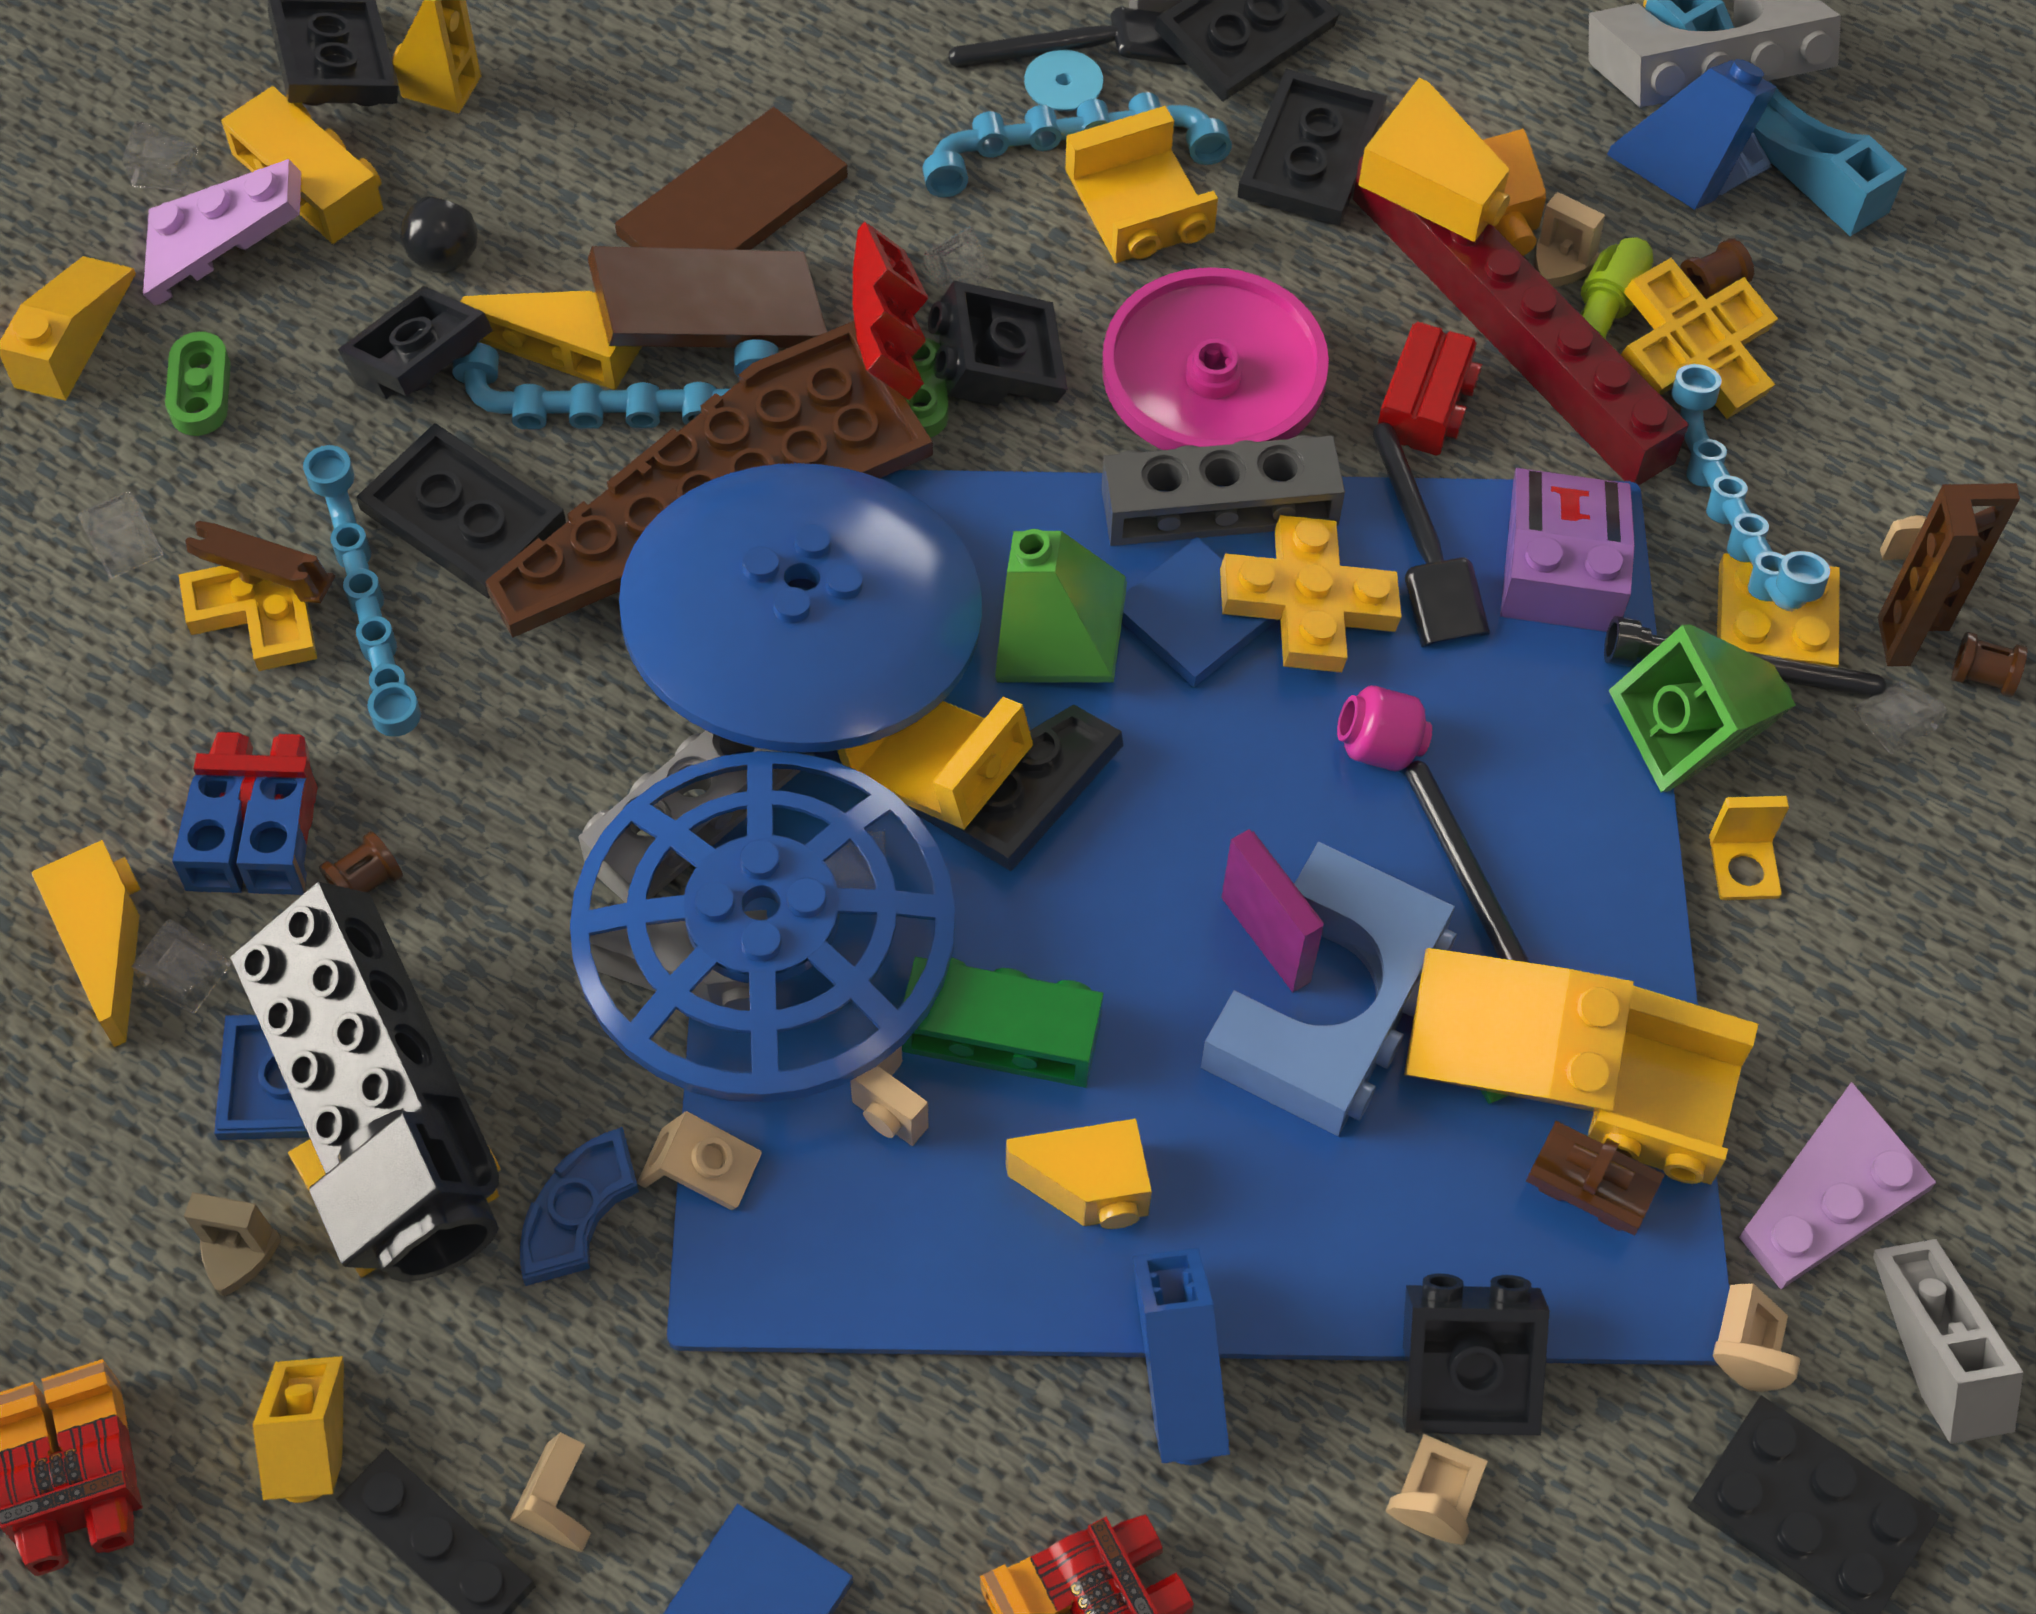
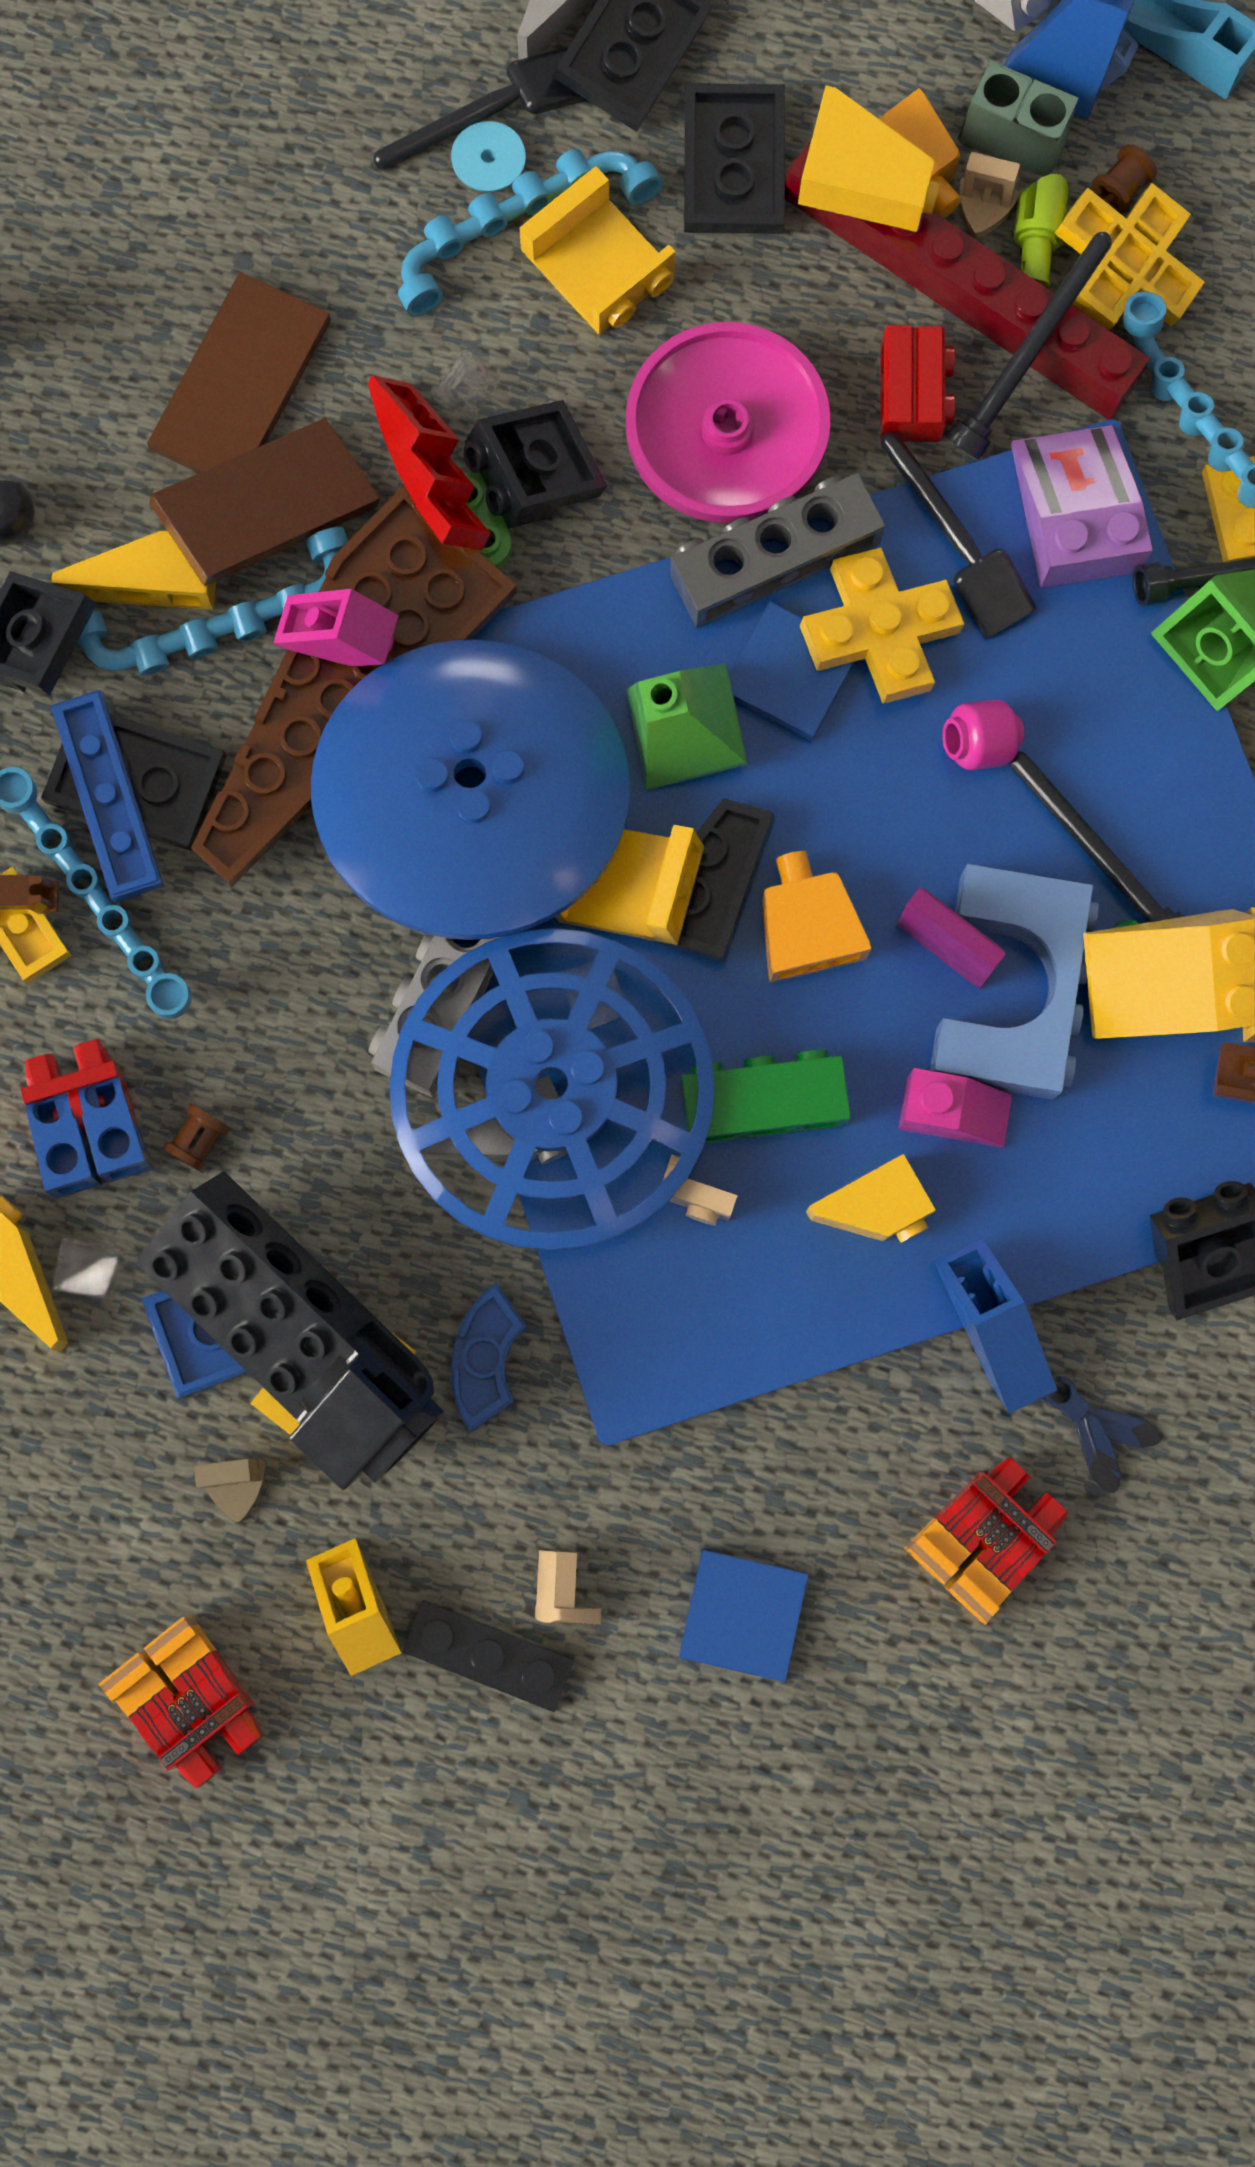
camera: 20 degrees left, 20 degrees up
(422, 513) = (107, 796): none -> blue tile
(702, 1160) = (569, 1293): tan bracket -> none
(728, 417) = (337, 627): none -> dark pink slope
(1120, 857) = (809, 922): none -> light orange torso
(1216, 1098) = (954, 1108): none -> dark pink slope
(1266, 1530) = (1096, 1428): none -> dark blue piece
(1439, 1491) = (1213, 1355): tan tile -> none
(1478, 447) = (974, 430): none -> black piece
(1623, 182) = (995, 133): none -> sand green piece

